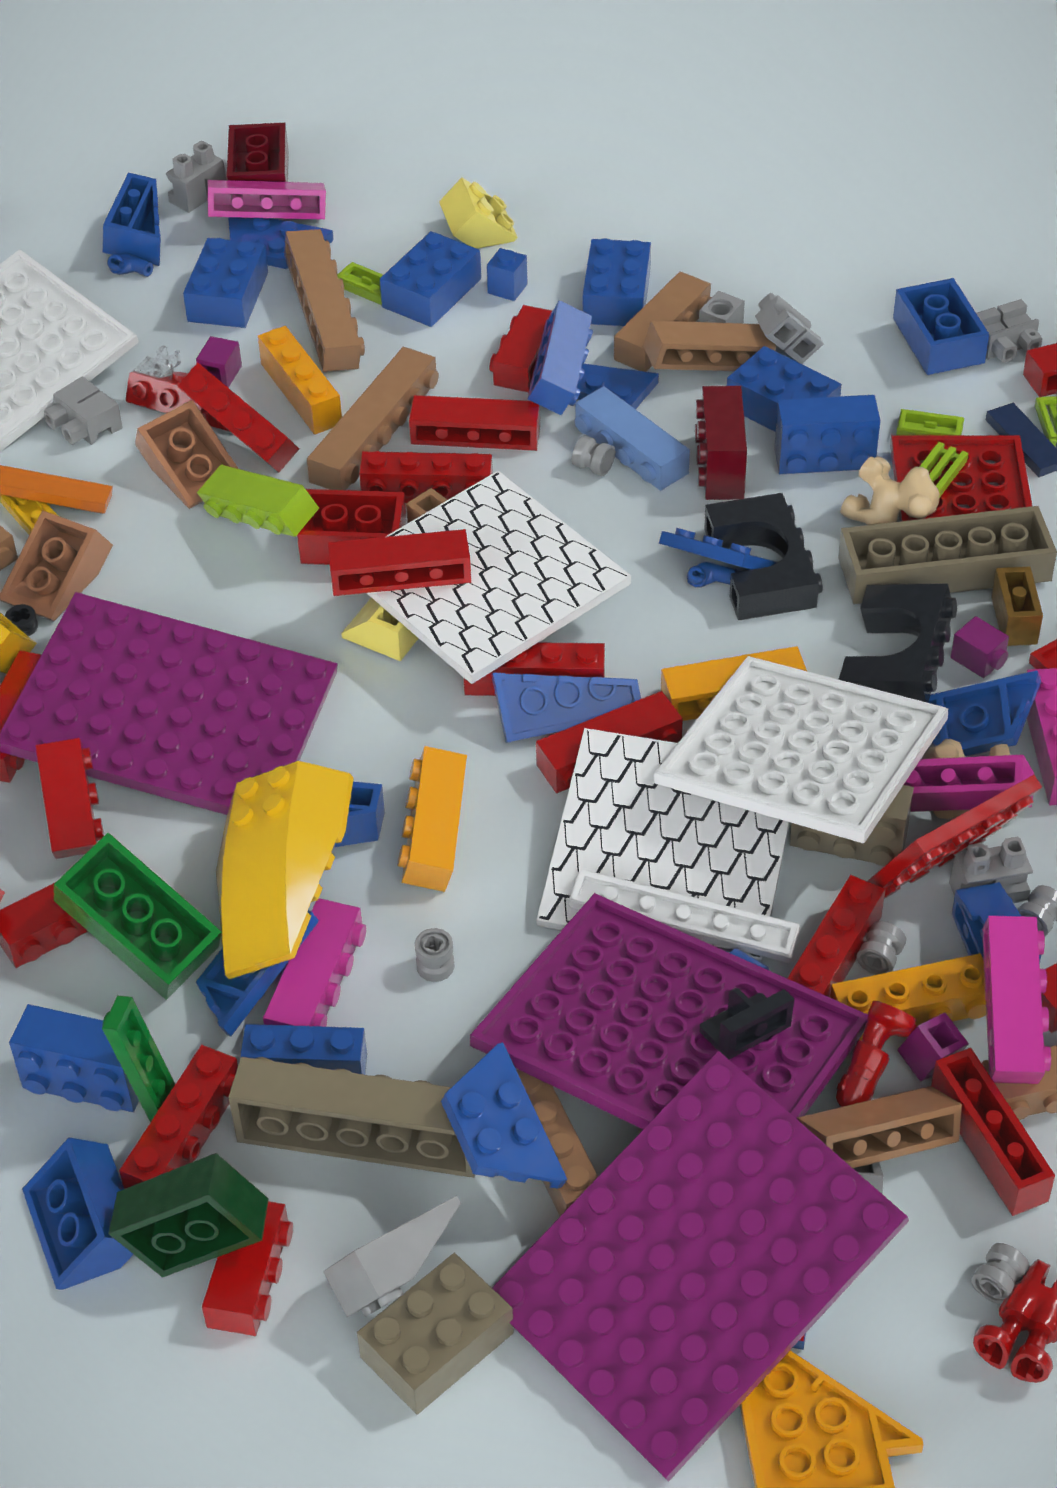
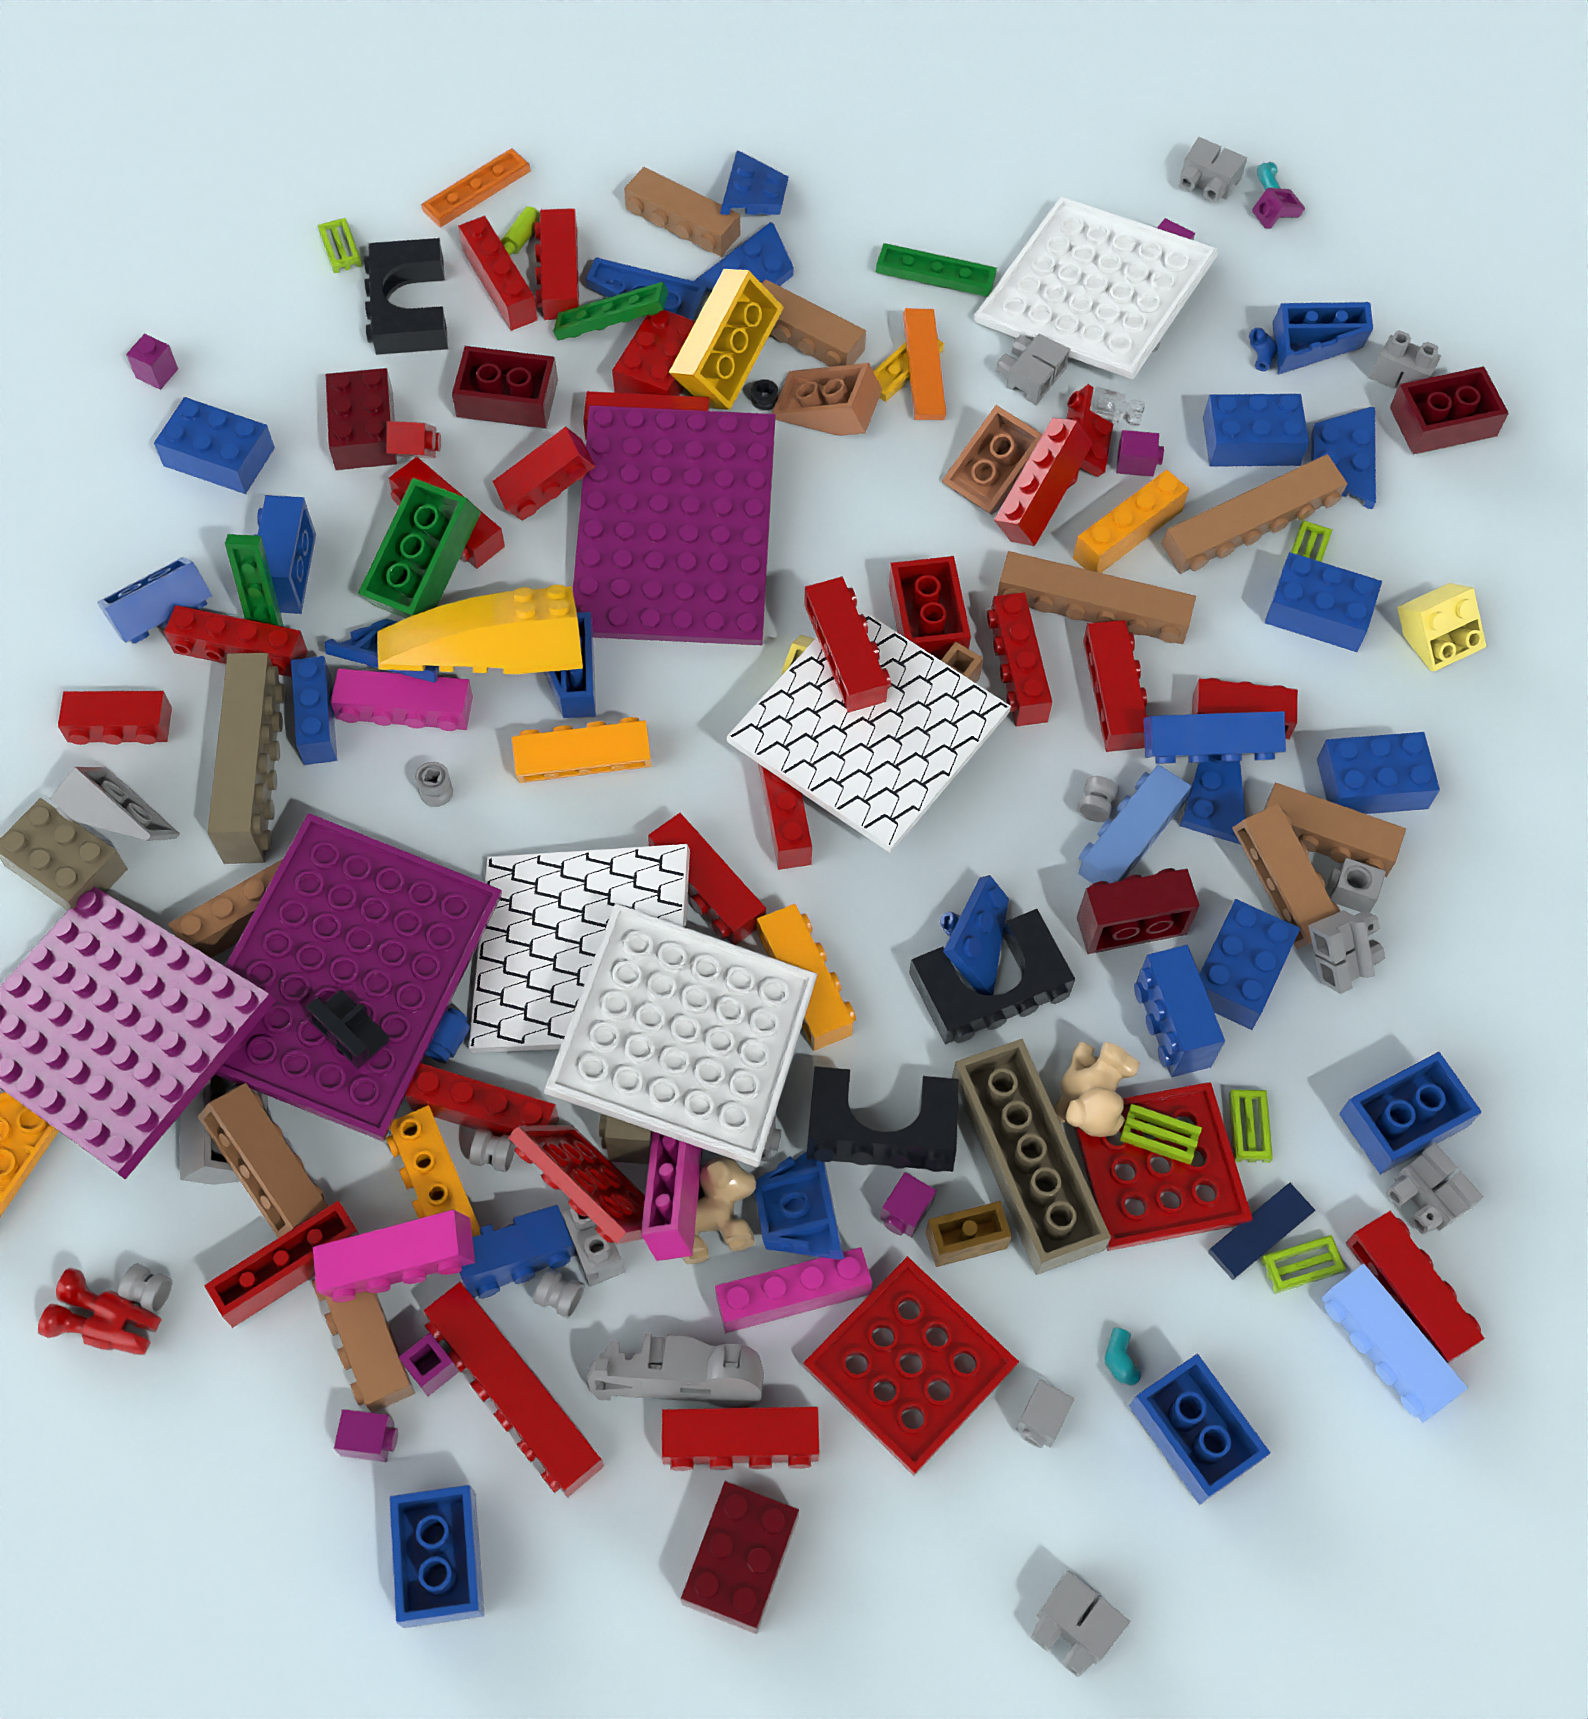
camera: 75 degrees right, 15 degrees up
(189, 1215) = (124, 657): dark green brick -> none
(257, 500) = (930, 522): lime brick -> none
(266, 199) = (1387, 430): dark pink brick -> none
(500, 1124) = (218, 851): blue wing -> none
(507, 274) = (1354, 669): blue brick -> none
(548, 704) = (742, 828): blue wing -> none
(694, 916) = (499, 975): white tile -> none
(868, 1059) = (356, 1149): red piece -> none
(929, 1043) = (372, 1203): magenta brick -> none

